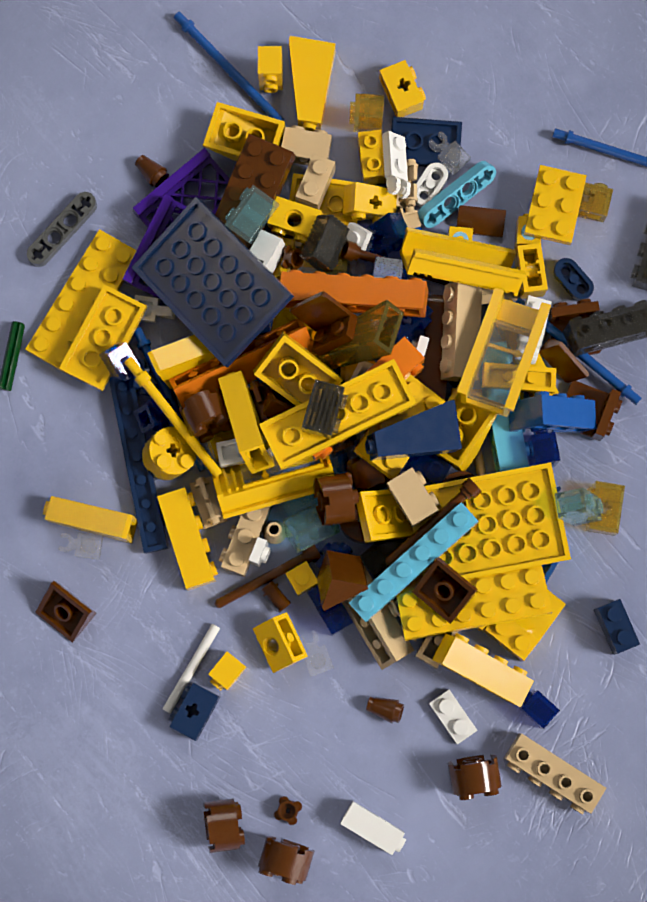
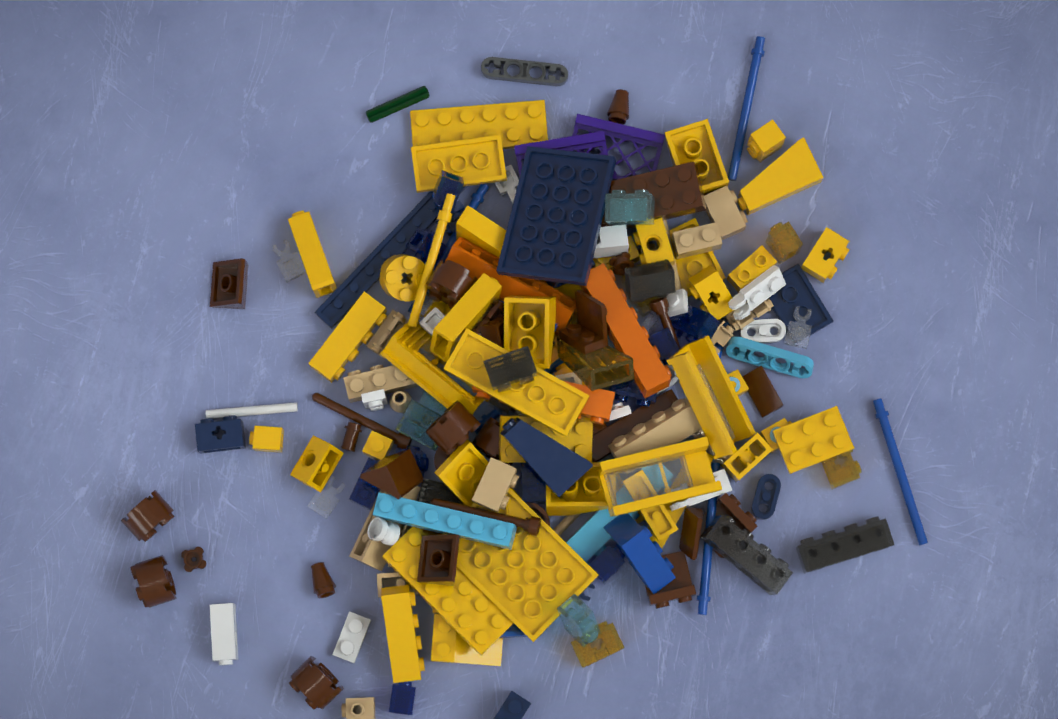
camera: 55 degrees right, 0 degrees up
(384, 623) = (383, 531): none -> white wheel

